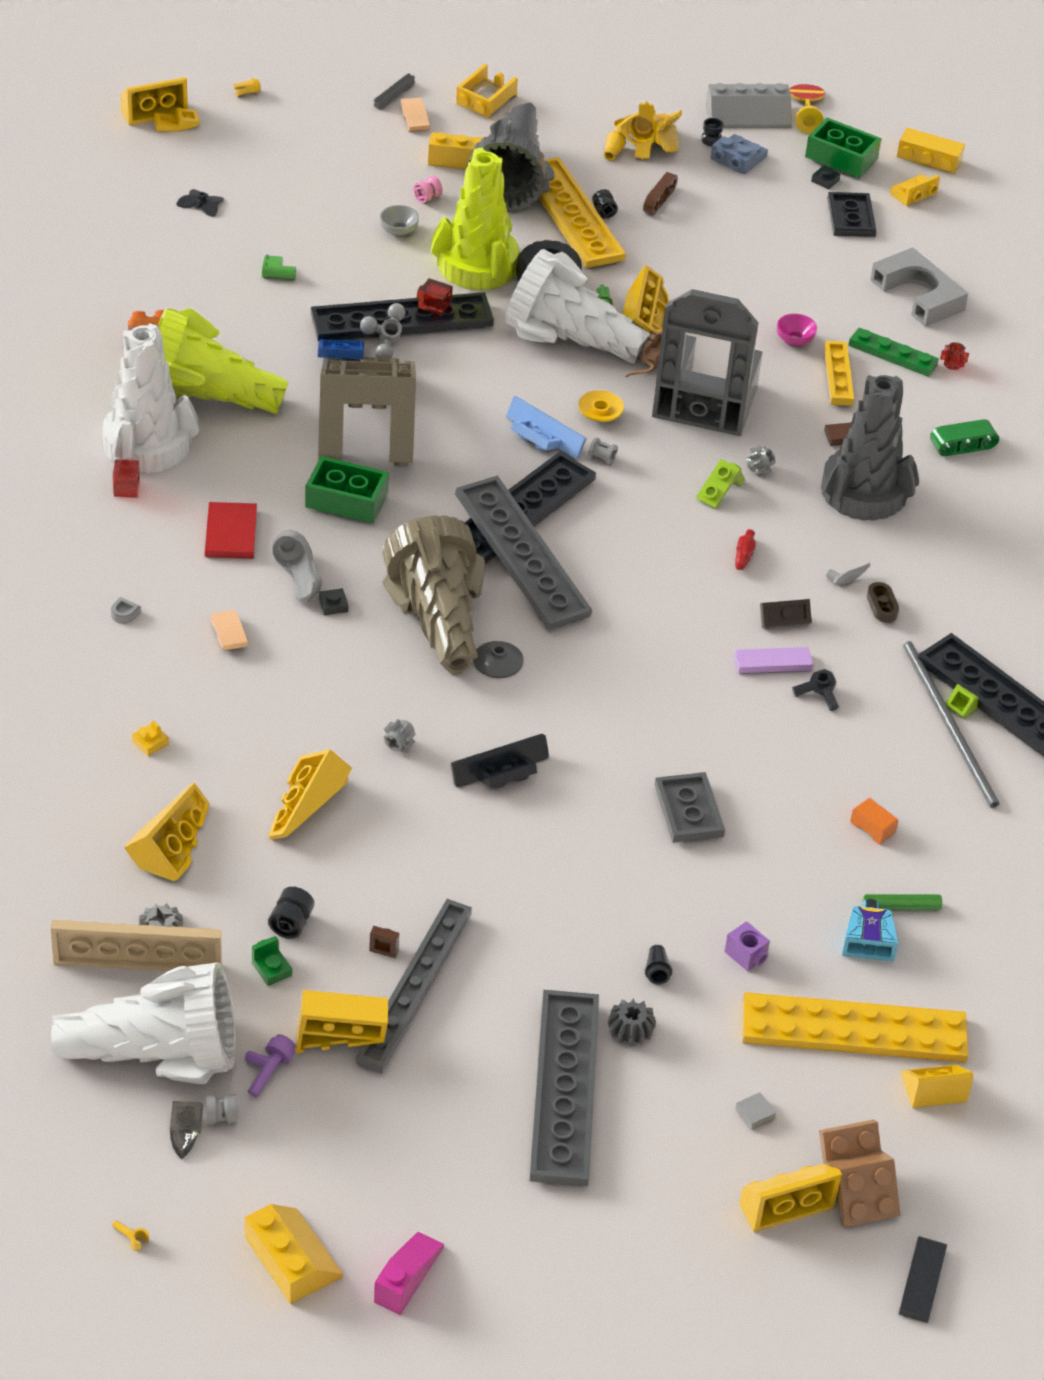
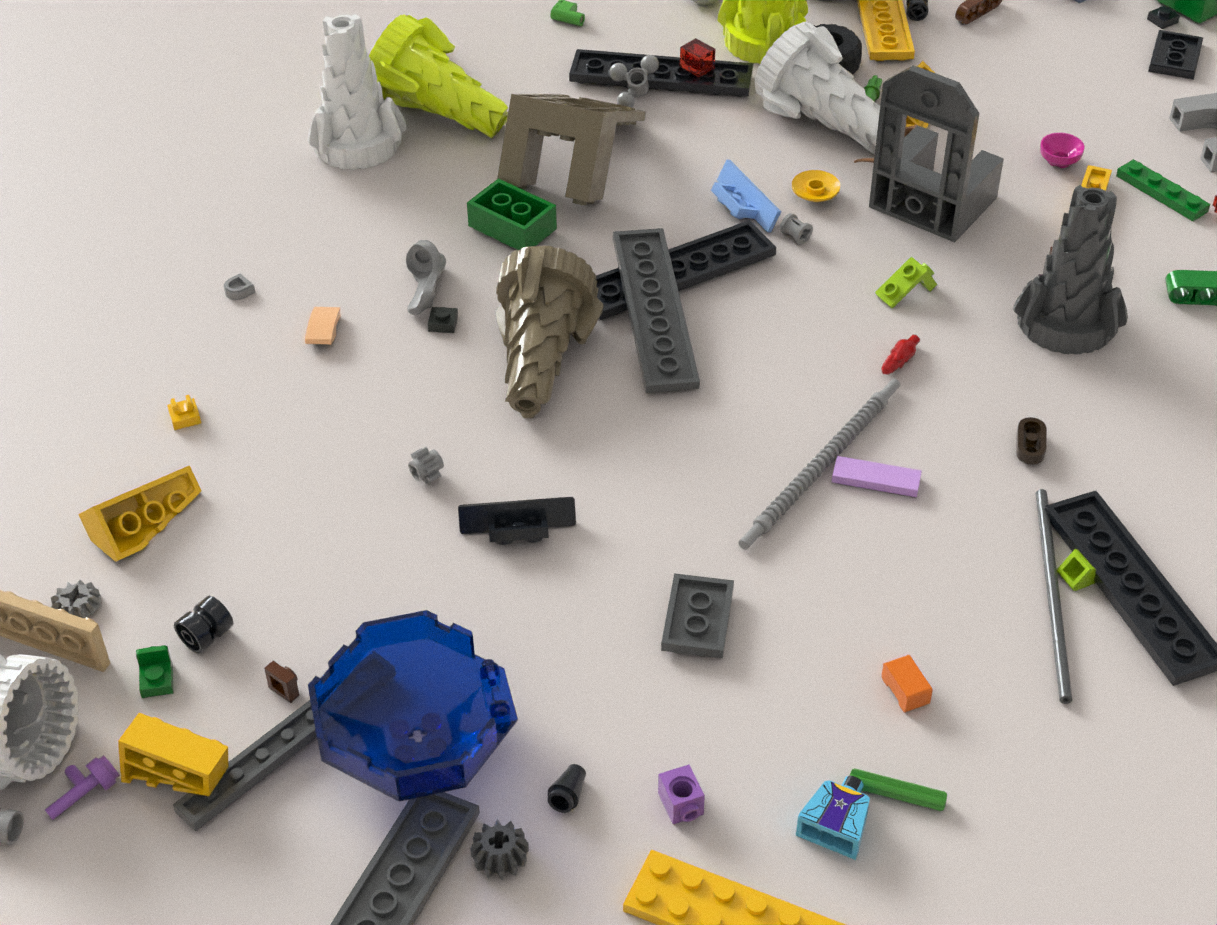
camera: 25 degrees right, 0 degrees up
(126, 478) = (311, 167): clear red brick -> none
(231, 530) = (384, 233): red tile -> none
(311, 785) = (312, 493): yellow wedge -> none
(341, 349) = (583, 90): blue tile -> none
(498, 659) = (579, 411): dark grey dish -> none
(510, 908) = (405, 679): none -> clear blue windscreen
(724, 659) = (818, 465): none -> light grey hose
(760, 460) = (960, 267): light grey gear -> none
(785, 613) = (912, 429): dark brown plate -> none
(821, 682) = (918, 513): black piece -> none
(848, 576) = (1004, 406): light grey bar -> none

